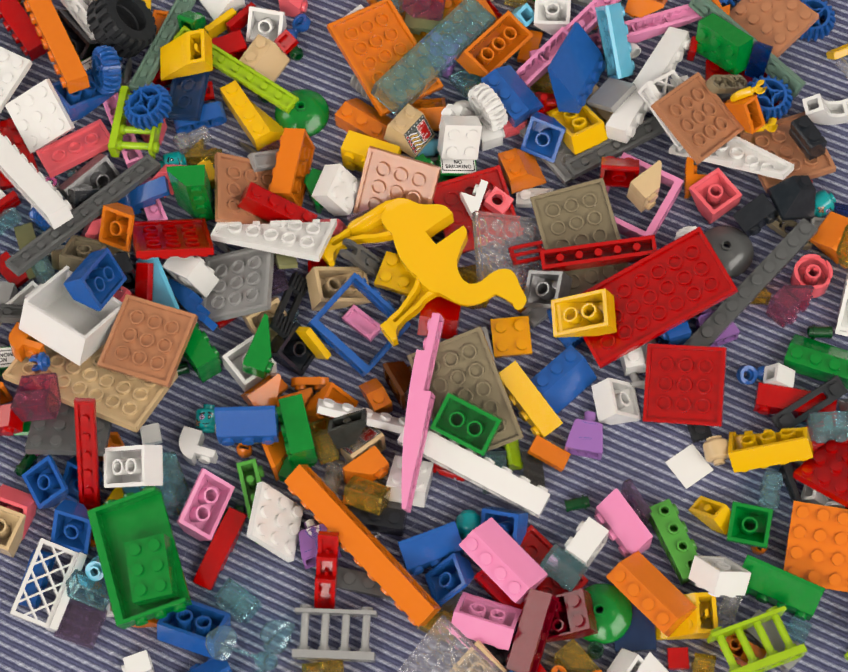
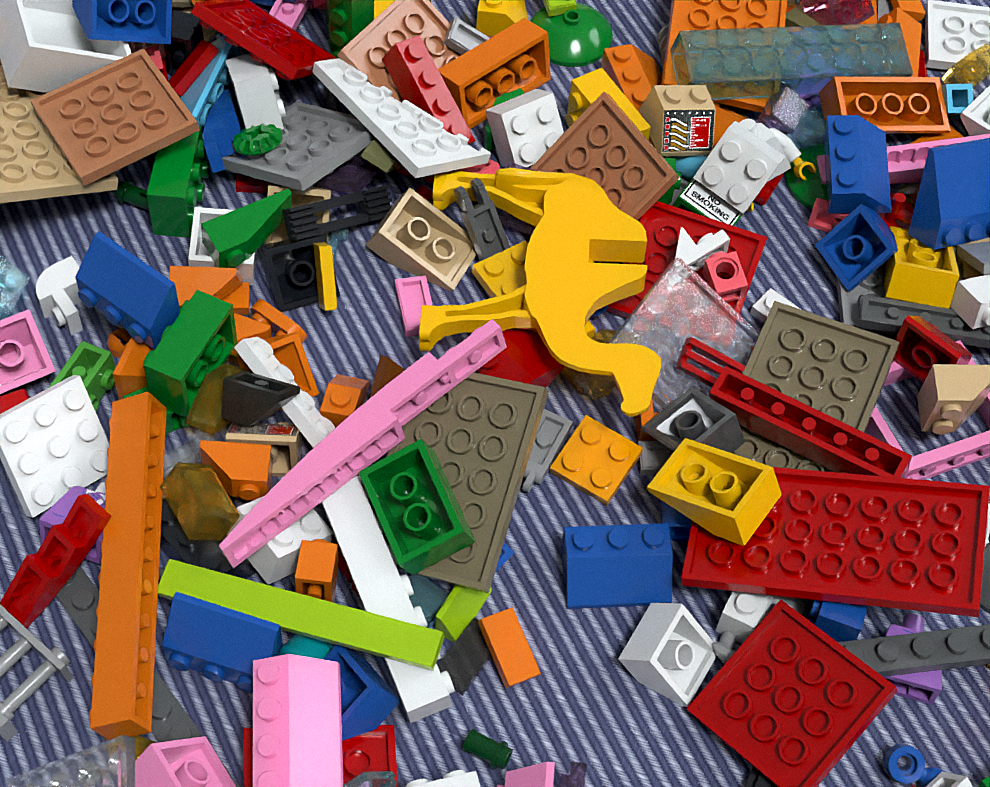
camera: 30 degrees right, 10 degrees down
(151, 434) = (30, 244): white tile -> none
(223, 293) = (257, 139): none -> green gear
(336, 344) = (387, 240): blue window -> none
(444, 487) = (317, 569): none -> orange slope
(449, 578) = (208, 704): blue slope -> none
(450, 87) = (783, 111): none -> brick
(458, 509) = (307, 615): none -> lime tile
(487, 107) = (809, 156): white gear -> none
(491, 139) = (788, 206): white brick -> none
(520, 170) = (794, 269): orange slope -> none
(529, 401) = (541, 553): yellow wedge -> none
(586, 437) = (581, 667): medium lavender torso -> none

